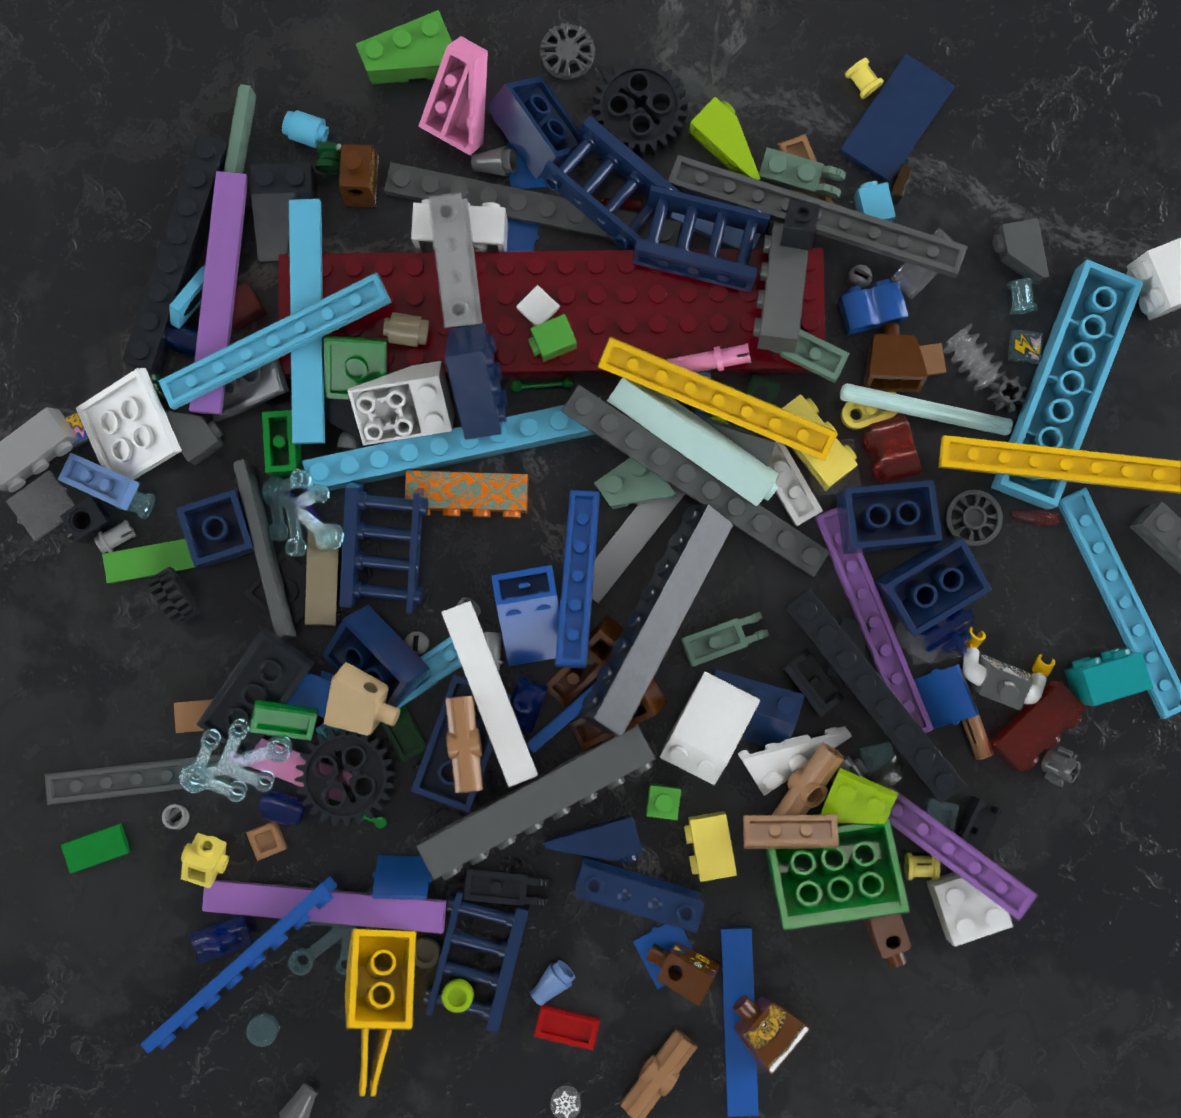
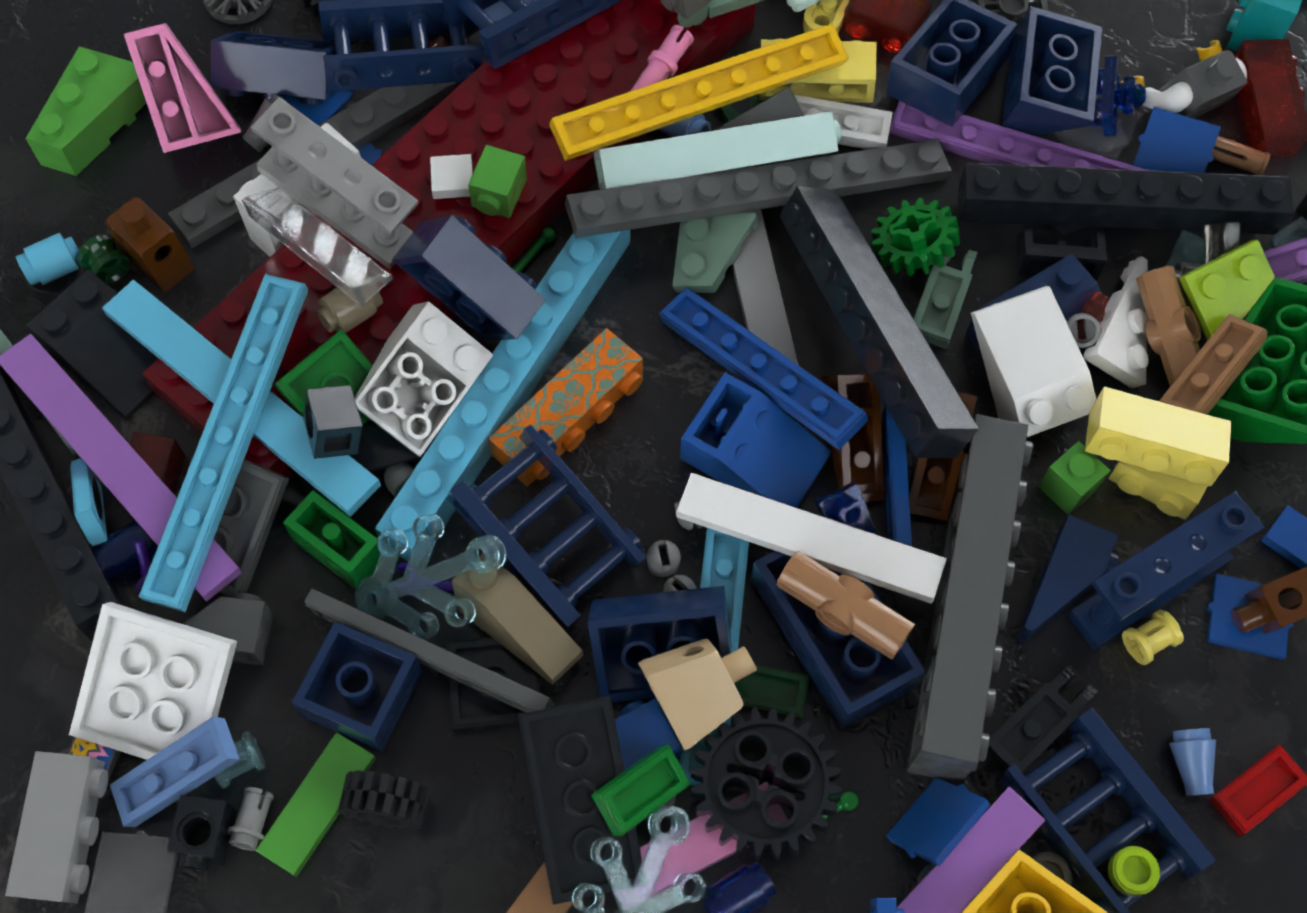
camera: 50 degrees left, 20 degrees down
(185, 361) = (144, 562): none -> dark purple hand
(328, 389) = (332, 421): none -> brick
(419, 283) = (317, 244): none -> clear slope
(433, 622) = (654, 562): none -> light grey hinge
(594, 914) = (1152, 637): none -> light yellow bush
(714, 833) = (1158, 436): none -> light yellow brick
(749, 734) = (1091, 329): none -> light grey hinge
(750, 605) = (915, 237): none -> green gear
(771, 735) = (1095, 308): none -> clear red piece

